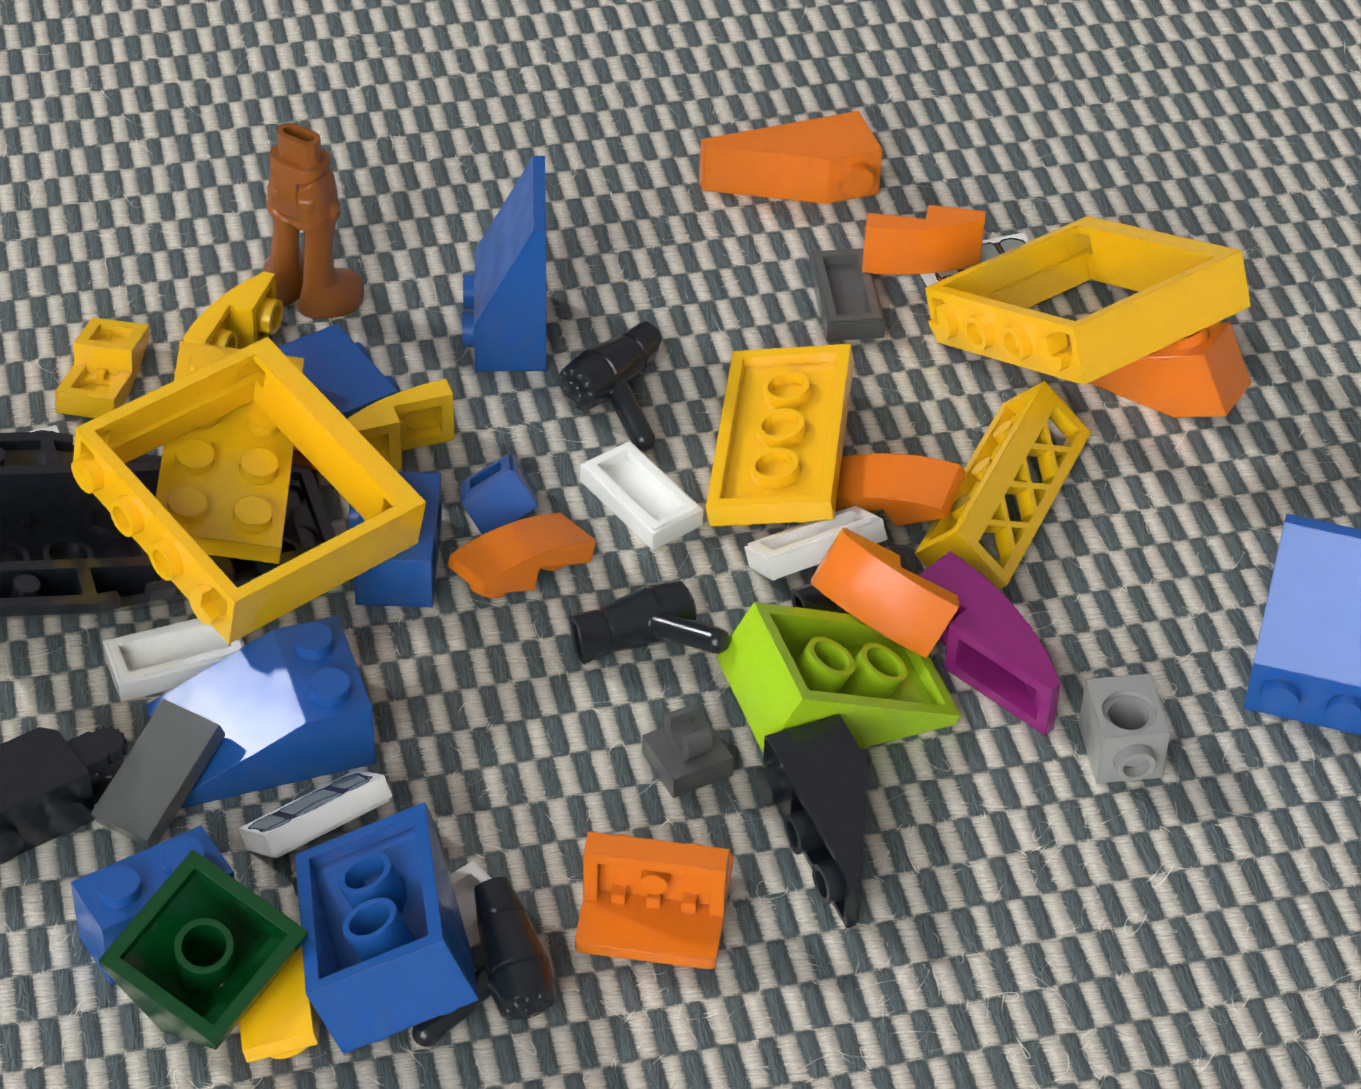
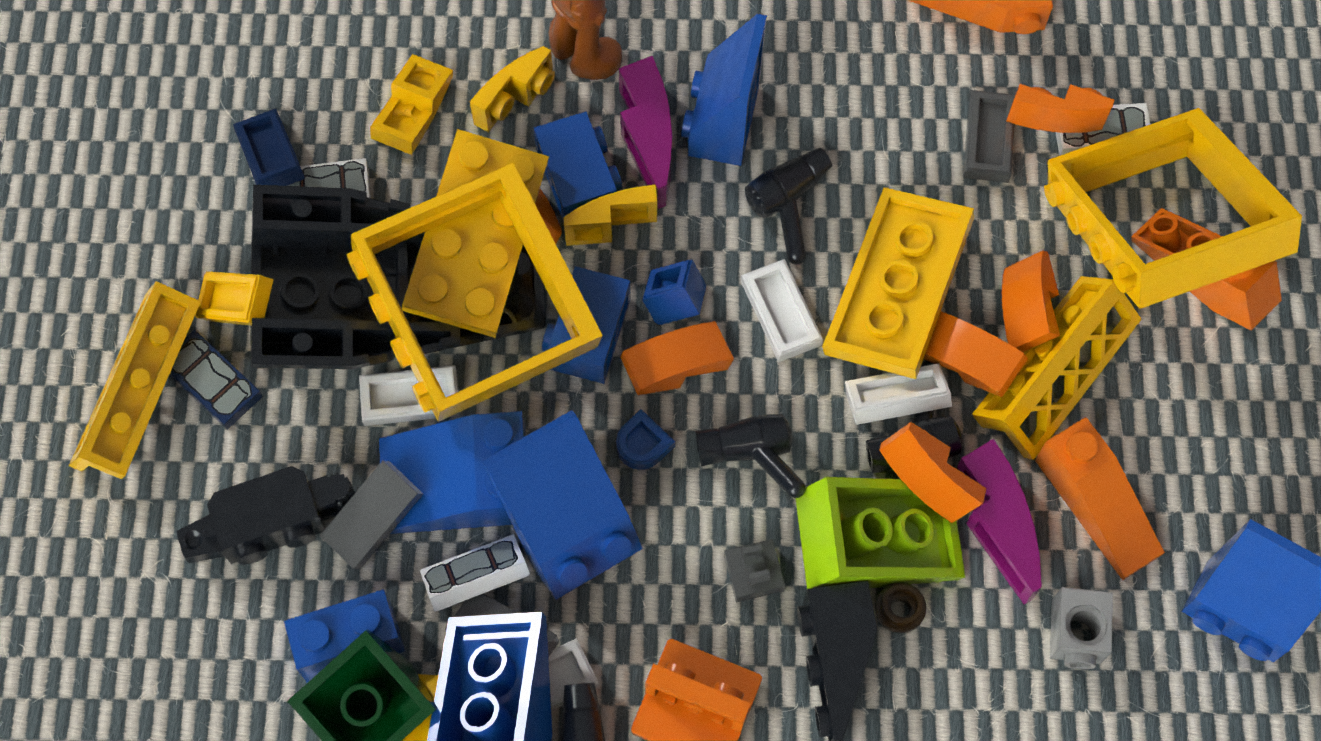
camera: 15 degrees right, 25 degrees up
(413, 330) = (647, 124): none -> magenta slope
(419, 691) = (562, 505): none -> blue slope
(502, 652) = (642, 442): none -> blue tile
(892, 754) = (907, 594): none -> dark brown plate
(949, 424) = (1027, 302): none -> orange slope
(1098, 597) = (1100, 496): none -> orange slope

